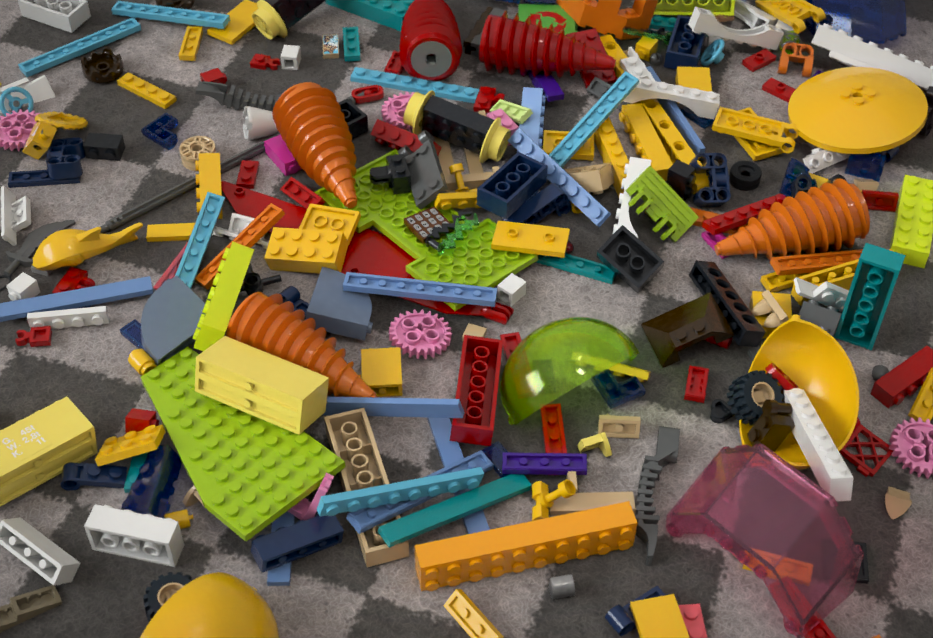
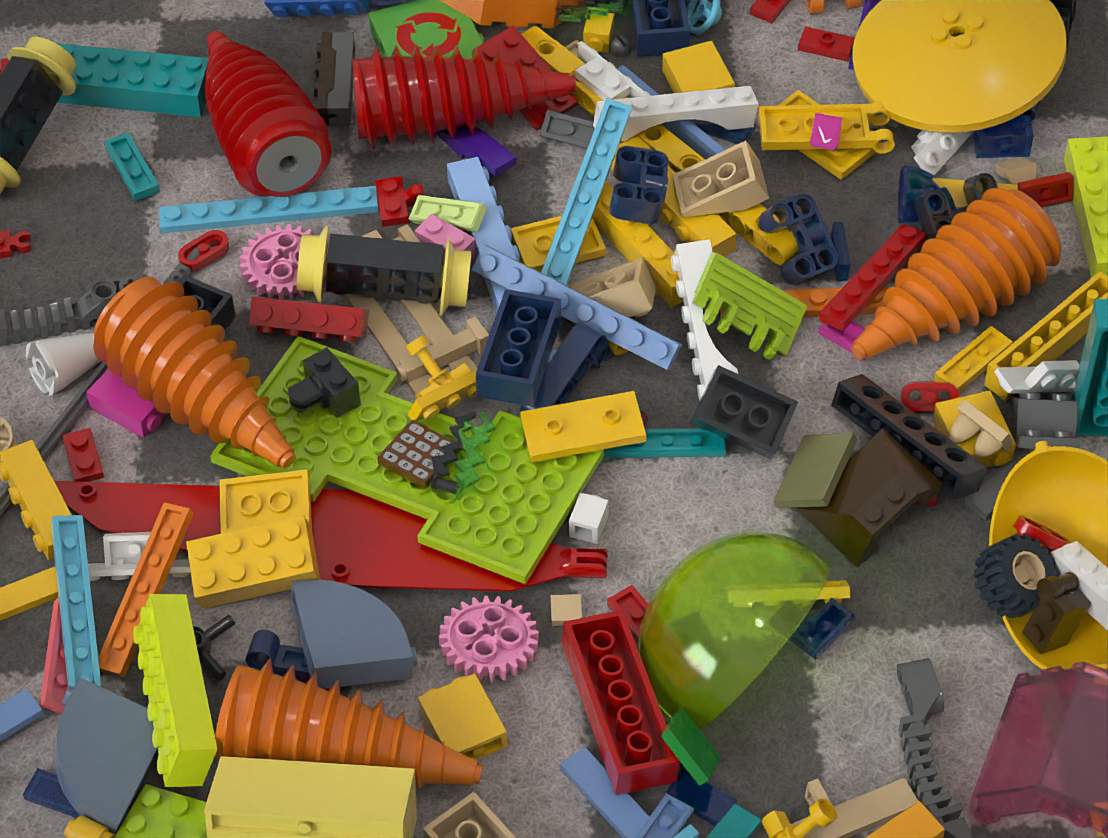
camera: 20 degrees left, 5 degrees up
(290, 57) = (46, 222): white brick -> none
(301, 194) = (191, 465): red plate -> none
(330, 46) = (98, 180): tile -> none
(394, 64) = (221, 180): red plate -> none
(397, 407) = (523, 774): medium blue tile -> none
(420, 289) = (462, 569): medium blue plate -> none
(425, 171) = (383, 376): dark grey hinge -> none
(505, 426) = (690, 746): none -> green tile
(544, 463) = (766, 782): dark purple tile -> none
(553, 429) = (764, 743): red plate -> none
(599, 440) = (830, 718): light yellow tile -> none
(619, 426) = (841, 684): tan tile -> none
(627, 124) = (642, 185): none -> dark blue beam
(660, 305) = (815, 470): none -> olive tile
(677, 138) = (722, 183): none -> tan slope
(681, 179) = (756, 251): black brick -> none
(696, 384) = (918, 578): red plate -> none
(720, 411) = (968, 608): black tile -> none
(734, 194) = (840, 243): none -> clear blue tile
(742, 182) = (841, 197): black tyre -> none
(752, 285) = (929, 394): none -> red plate
(753, 127) = (826, 131): none -> dark pink slope
(812, 262) = (1006, 324): orange plate -> none

